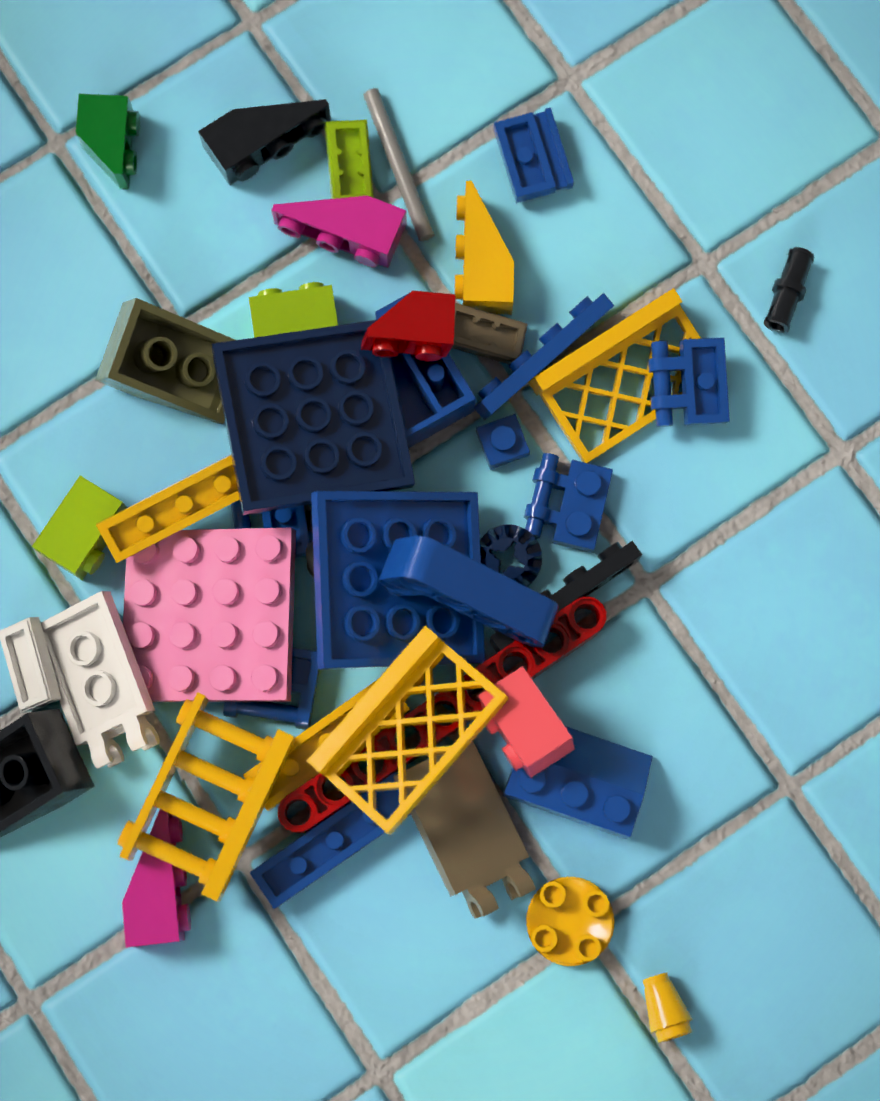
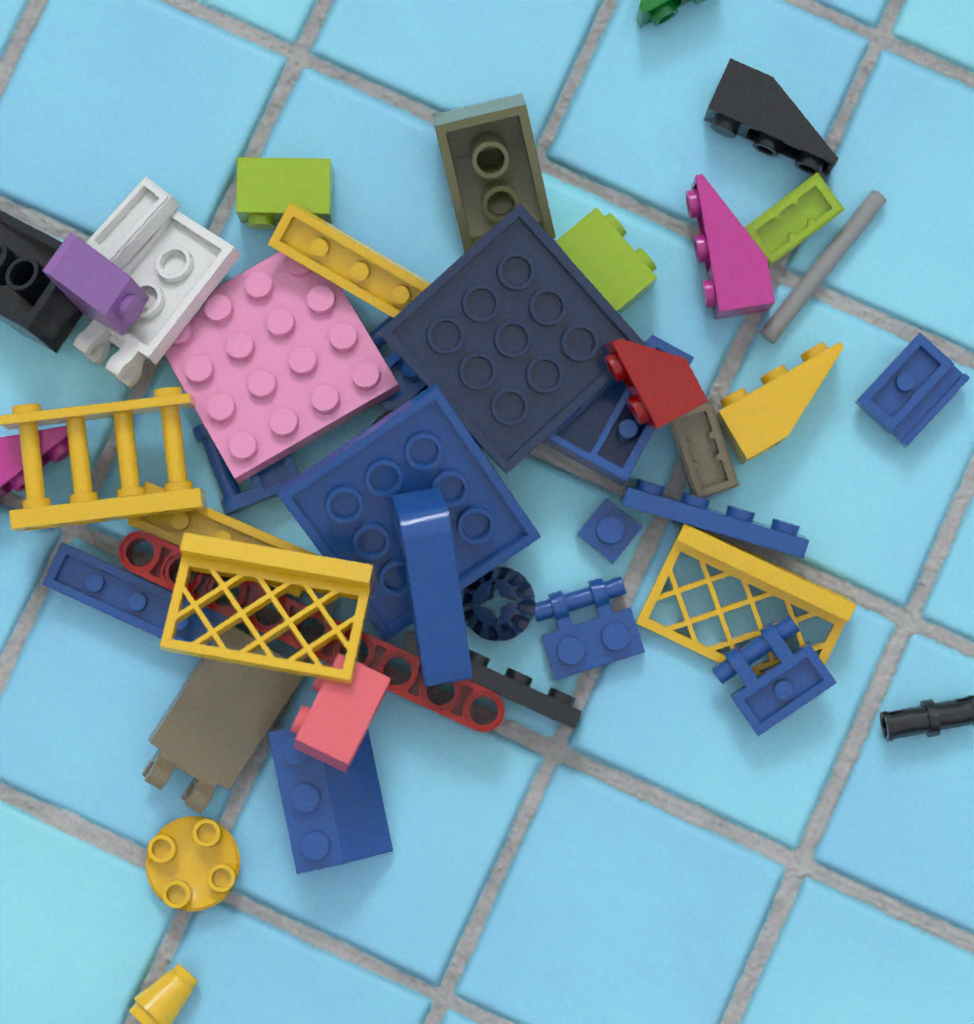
camera: 60 degrees right, 5 degrees up
(63, 715) = (96, 285): none -> medium lavender slope

